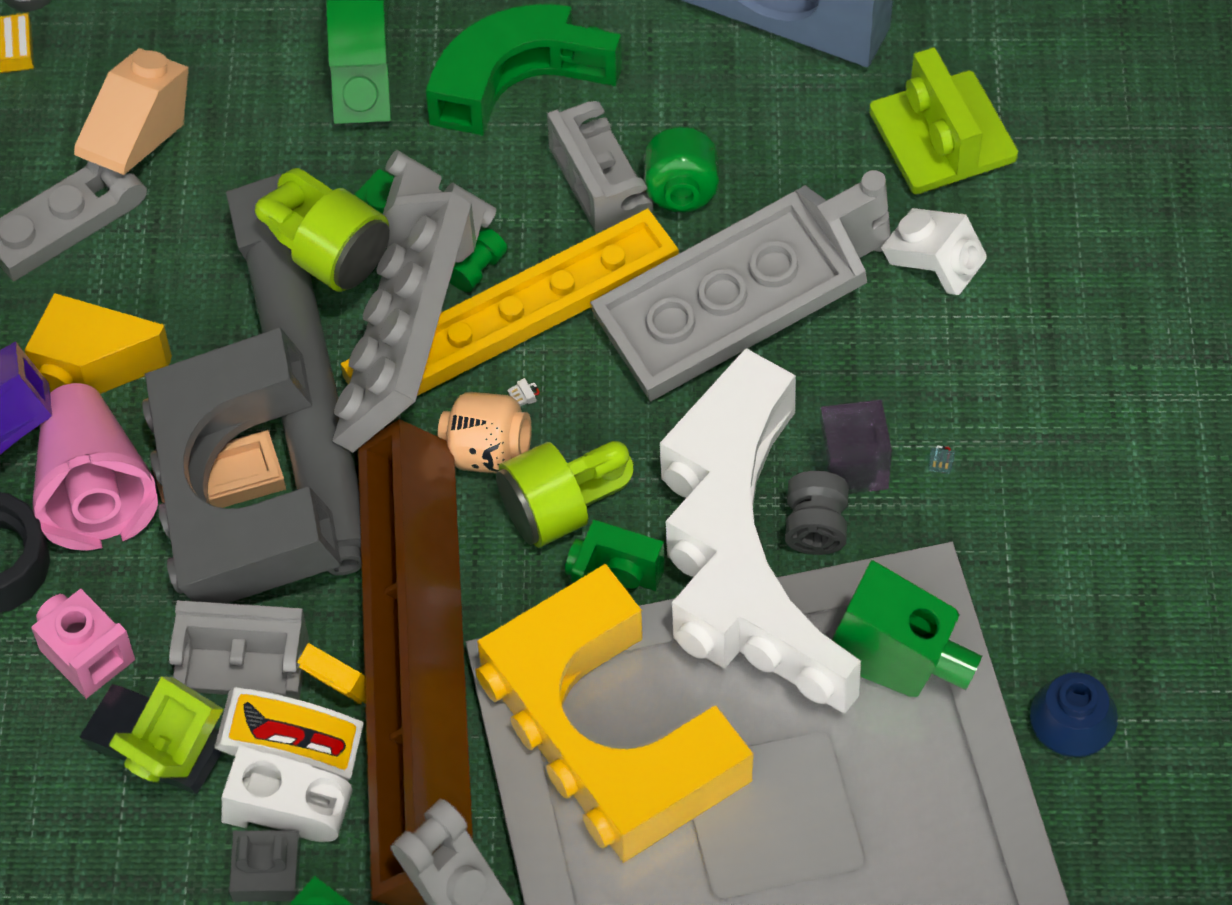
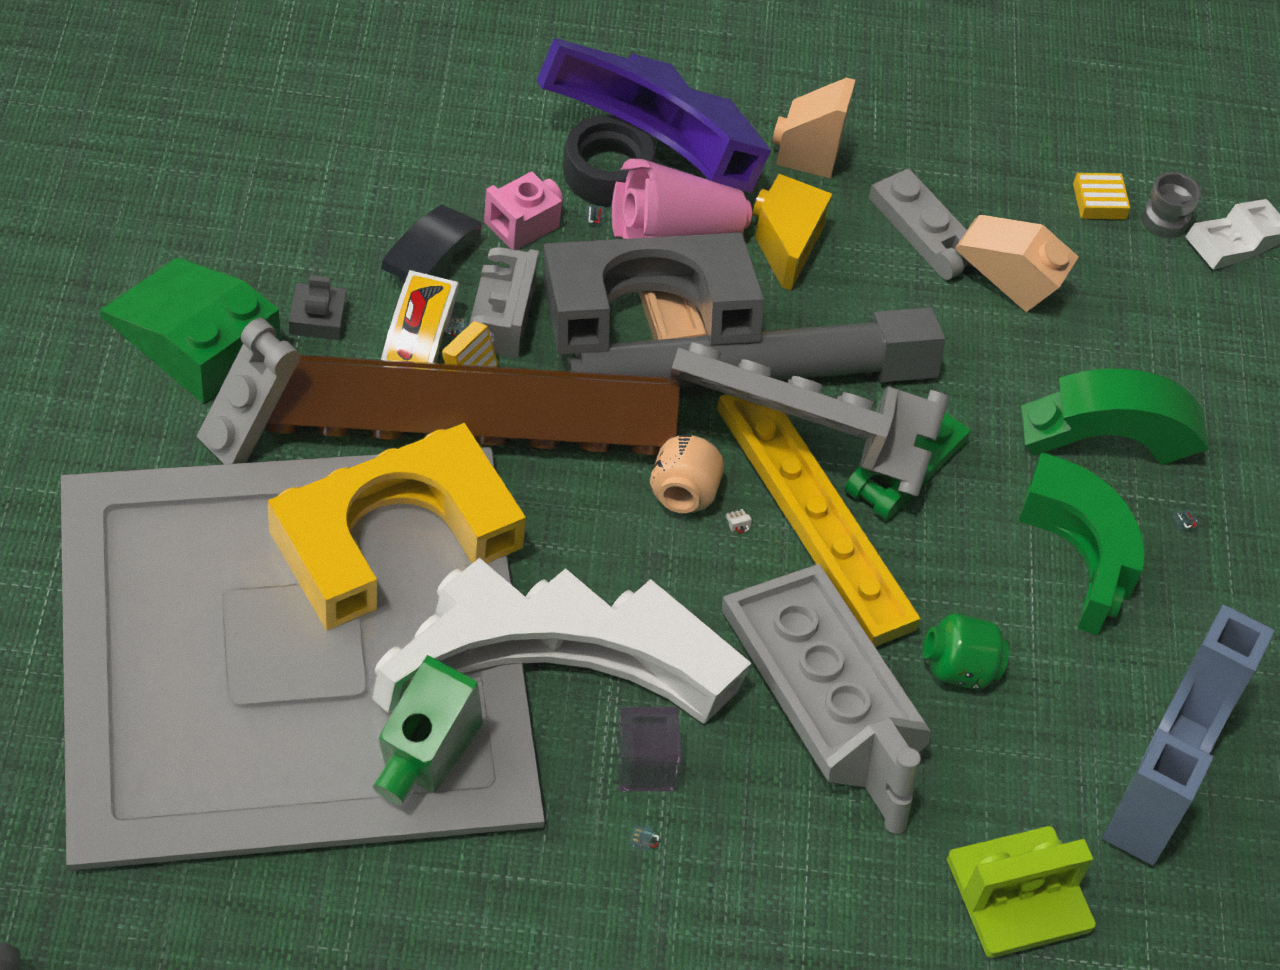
camera: 85 degrees right, 5 degrees down
(68, 571) = (594, 214): none -> clear light blue piece
(168, 732) = (414, 233): lime bracket -> none
(284, 795) = (366, 315): white leg -> none
(326, 229) = (868, 355): lime piece -> none
(551, 496) = (619, 511): lime piece -> none
(596, 166) = (978, 584): light grey hinge -> none
(629, 555) = (555, 544): green bracket -> none
(817, 507) = (581, 712): dark grey wheel -> none
(937, 243) = (875, 861): white bracket -> none
(1074, 715) = (352, 899): dark blue cone -> none

